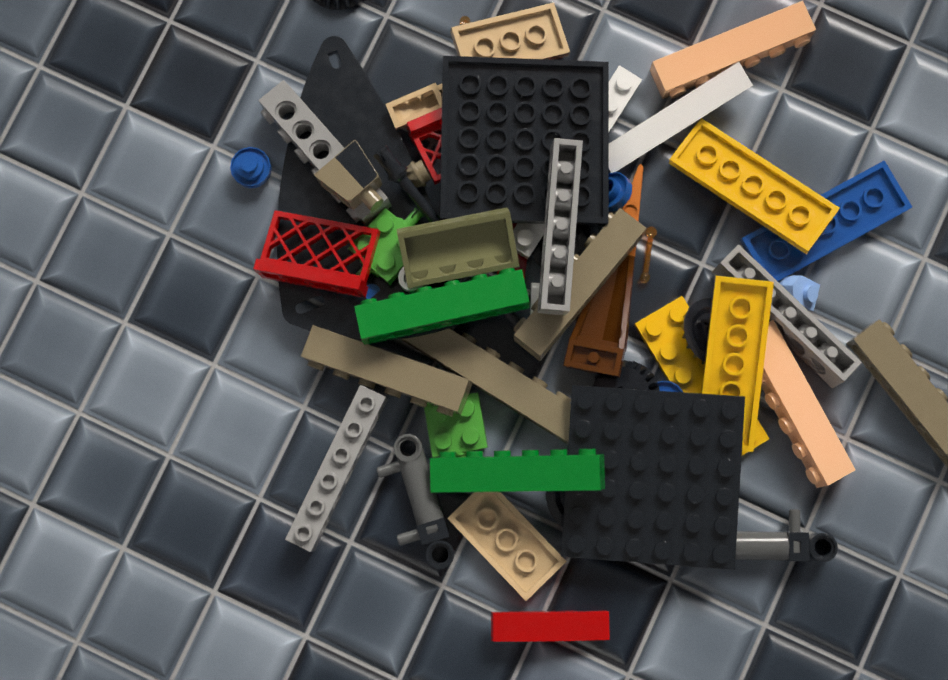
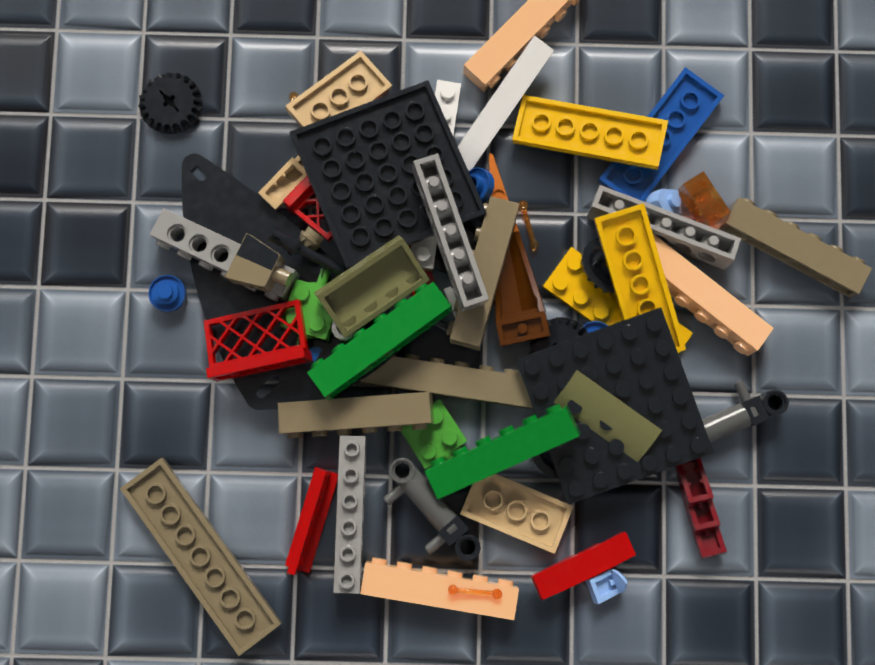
camera: 30 degrees left, 0 degrees up
(170, 445) = (201, 556): none -> dark tan plate
(295, 459) = (311, 521): none -> red fence
(393, 585) = (431, 588): none -> light nougat brick
(447, 613) = (495, 593): none -> clear orange hinge
(564, 656) = (606, 585): none -> light blue plate
(636, 468) = (598, 404): none -> olive slope
(697, 622) = (700, 509): none -> dark red slope
(841, 307) = (703, 200): none -> clear orange brick

